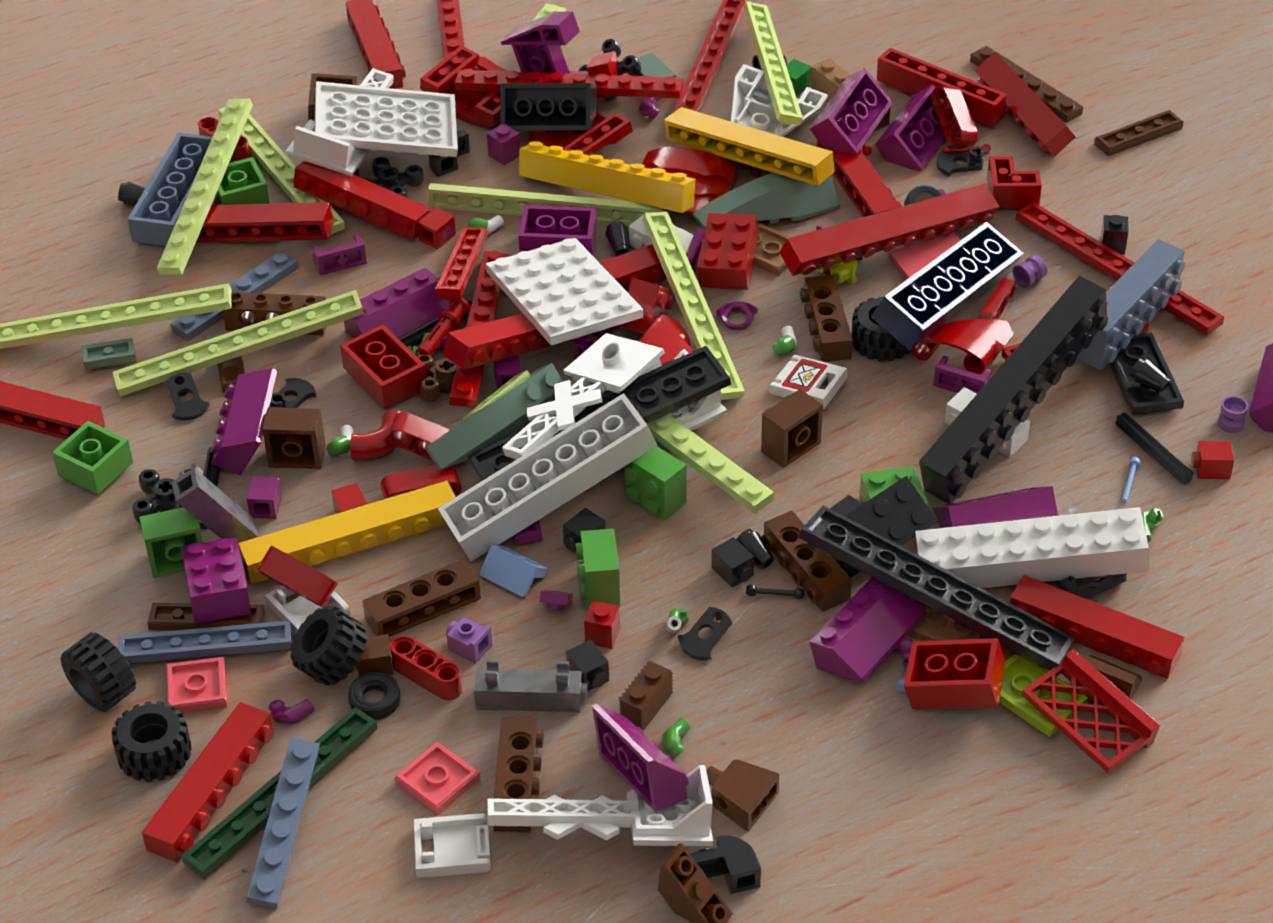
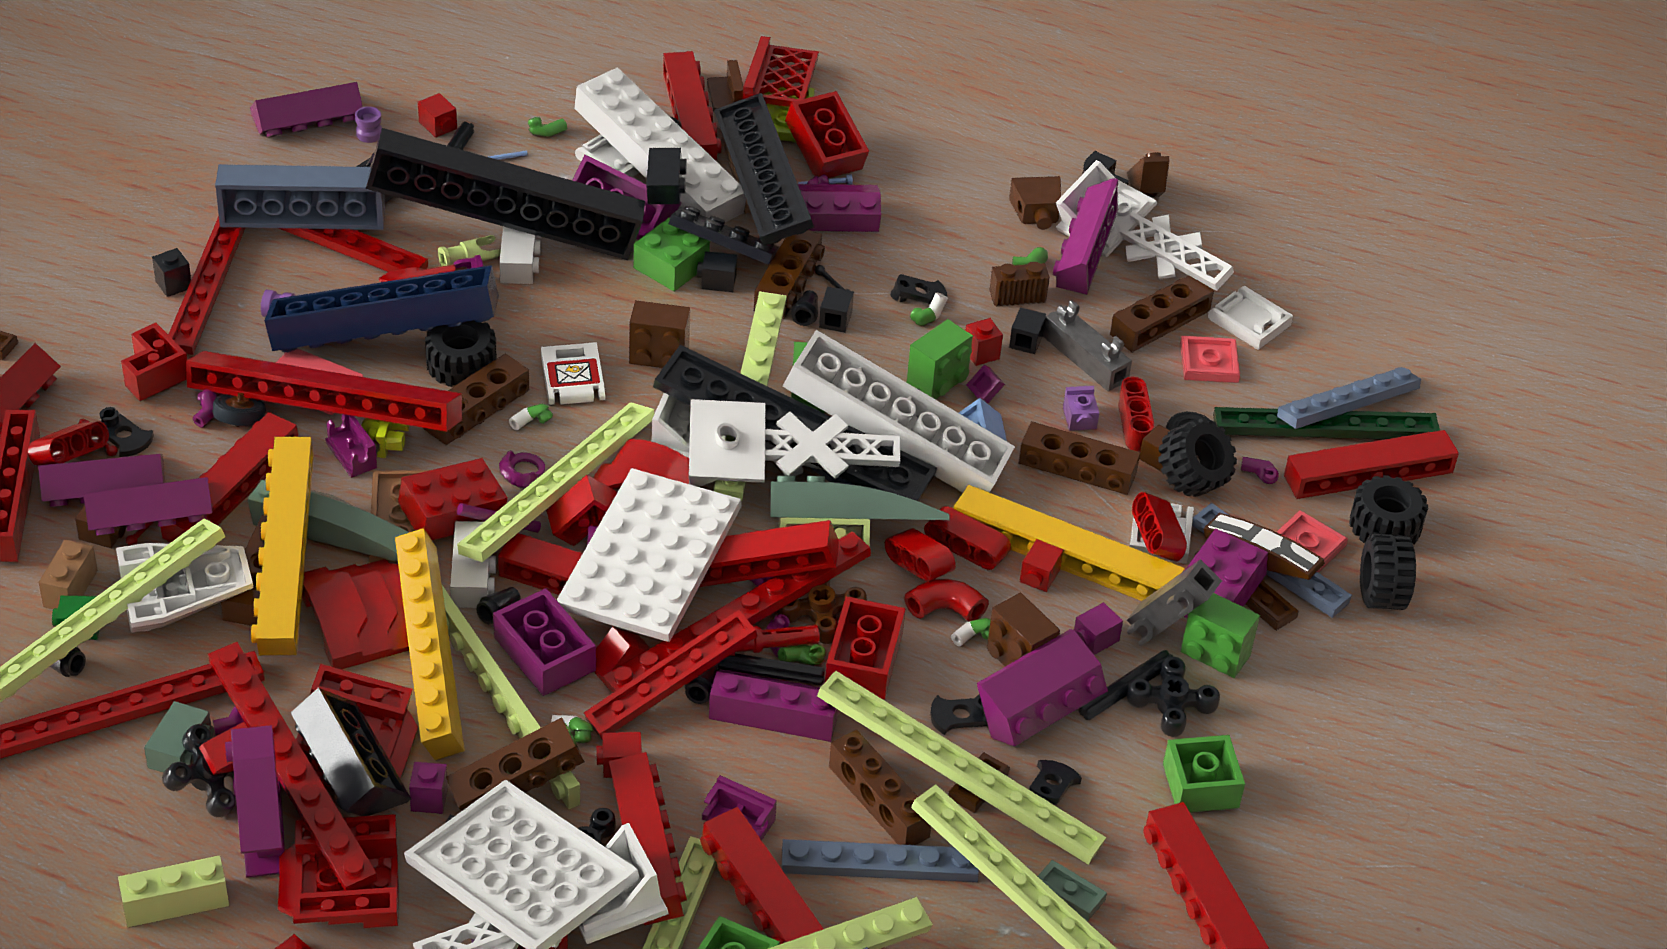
camera: 135 degrees left, 0 degrees up
(199, 620) = (1283, 553): none -> slope
(466, 167) = (522, 755): none -> reddish brown brick
(963, 499) = (665, 176): none -> black brick

